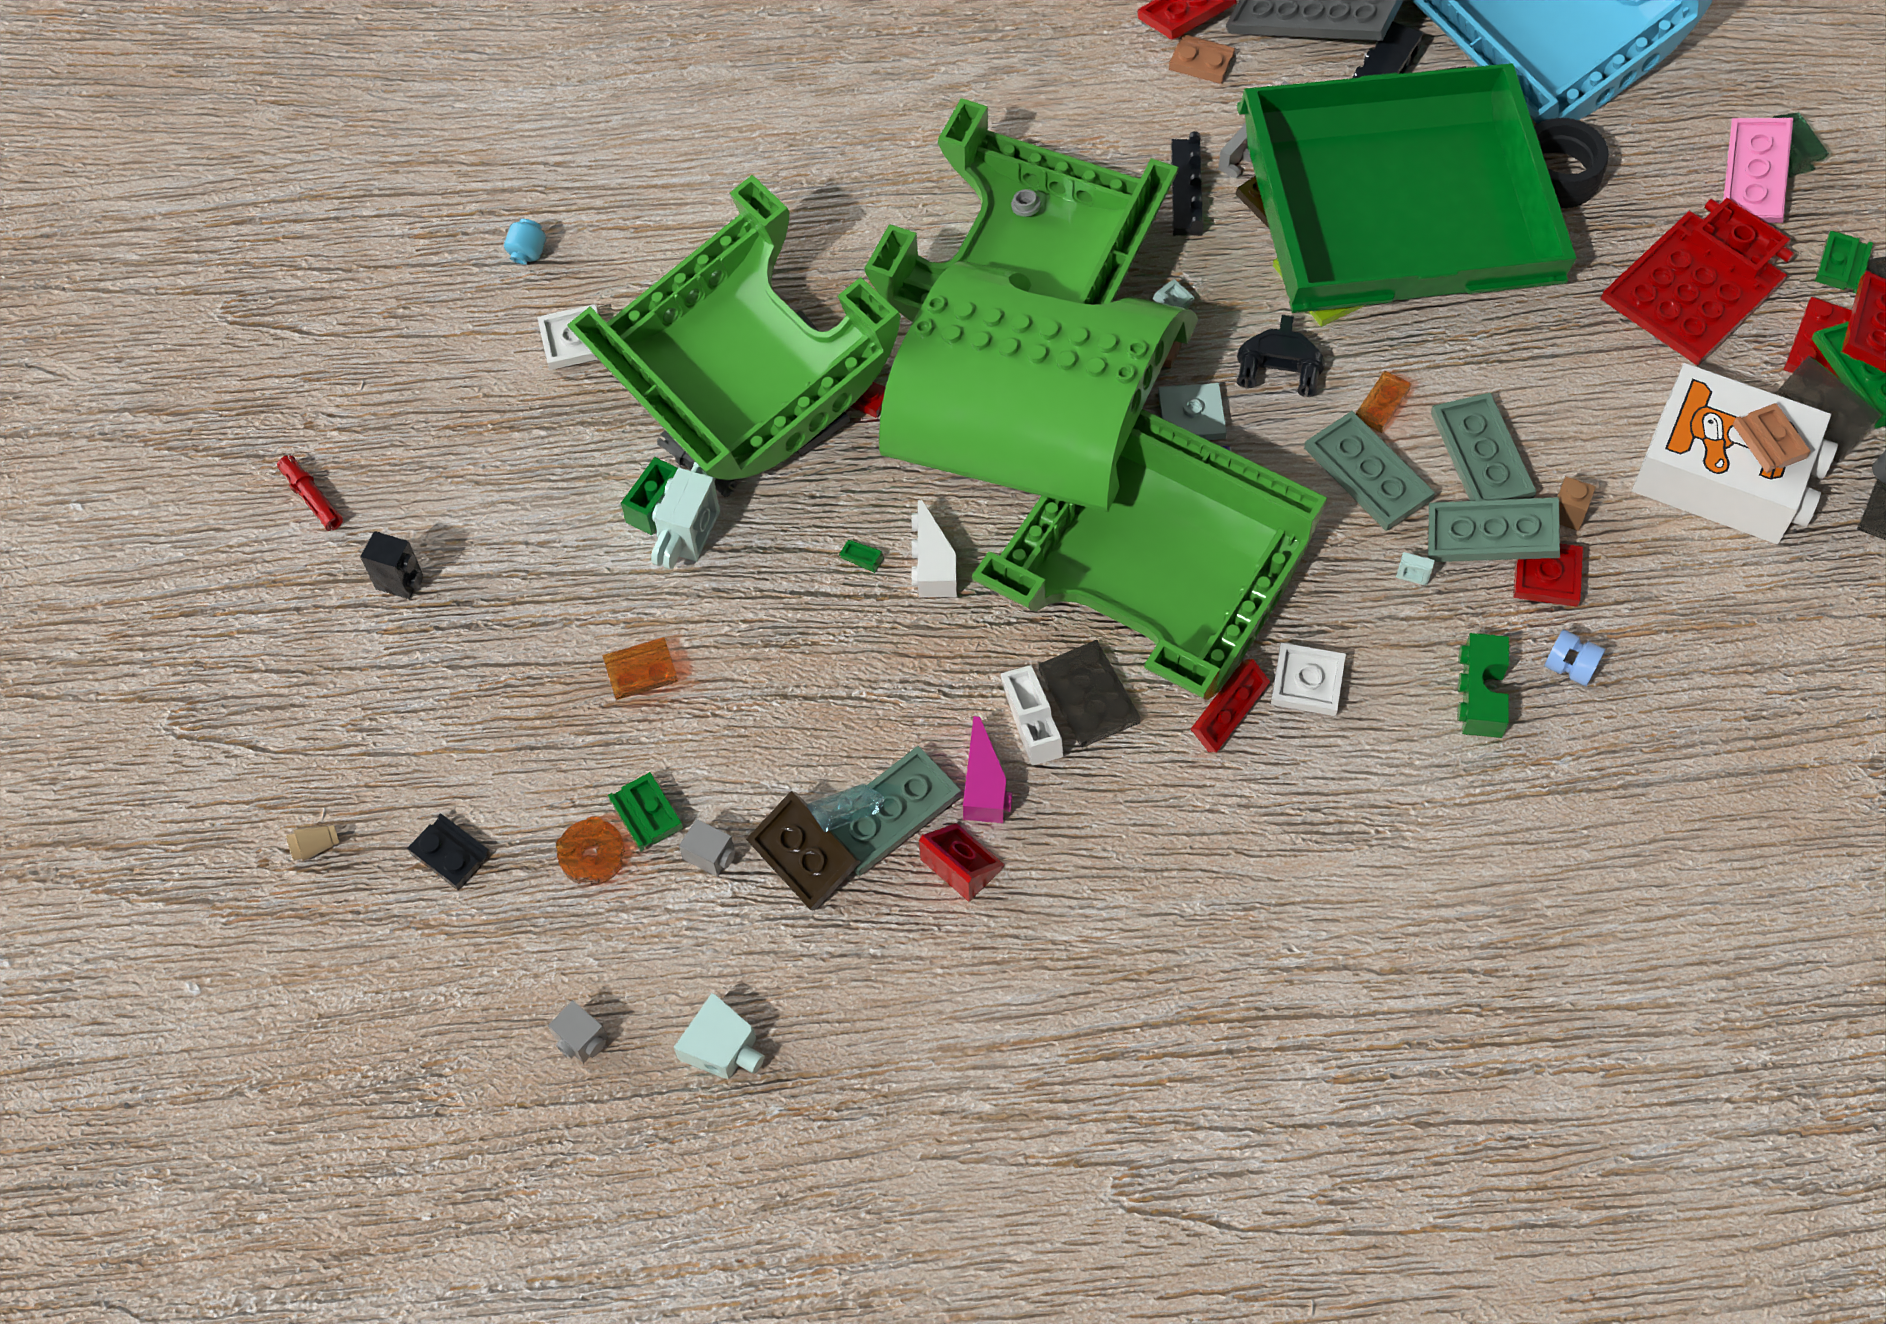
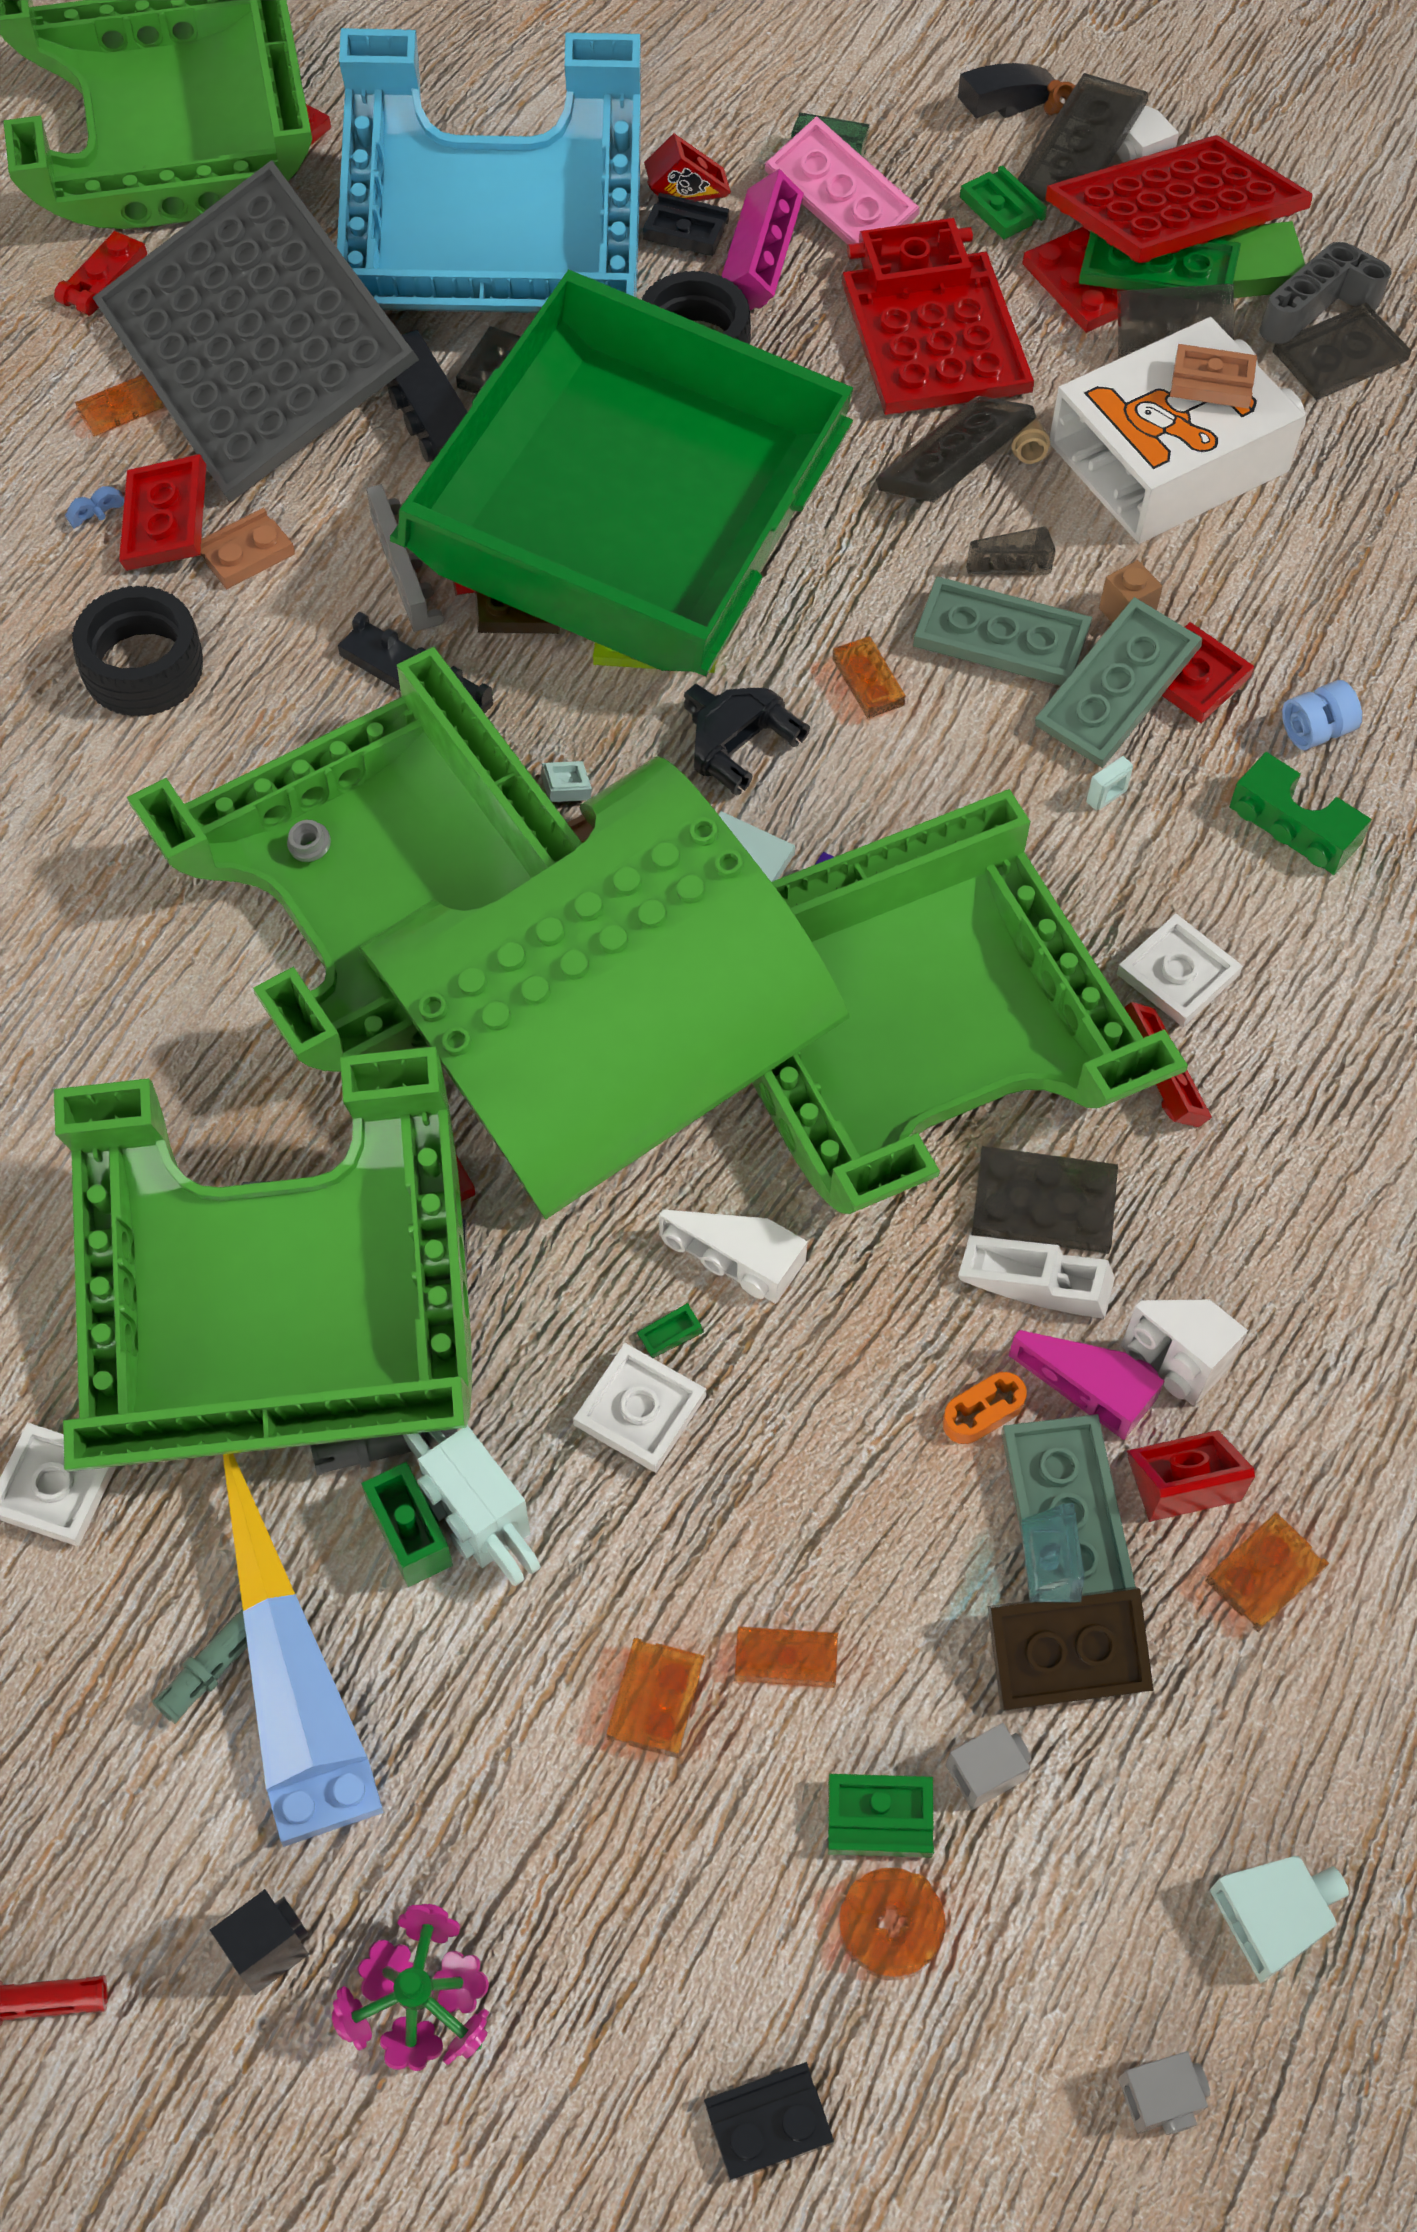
camera: 60 degrees left, 0 degrees up
(413, 638) = (394, 1980): none -> dark pink plant
(514, 526) = (307, 1740): none -> light blue plate
(518, 461) = (203, 1670): none -> sand green pin
(707, 718) = (786, 1657): none -> clear orange plate
(801, 565) = (640, 1407): none -> white plate
(927, 733) = (978, 1398): none -> orange beam
(927, 933) = (1266, 1572): none -> clear orange plate
(1034, 809) = (1185, 1343): none -> white slope
(1089, 30) = (132, 613): none -> black tyre
(1369, 470) = (949, 745): sand green plate -> none
(1548, 423) = (1013, 553): none -> clear smoke slope
(1603, 347) = (955, 448): none -> clear smoke tile
(1648, 112) = (686, 224): none -> black plate
(1654, 382) = (1031, 443): none -> tan cone
(1667, 154) = (763, 237): none -> dark pink brick
(1688, 87) = (685, 172): none -> slope

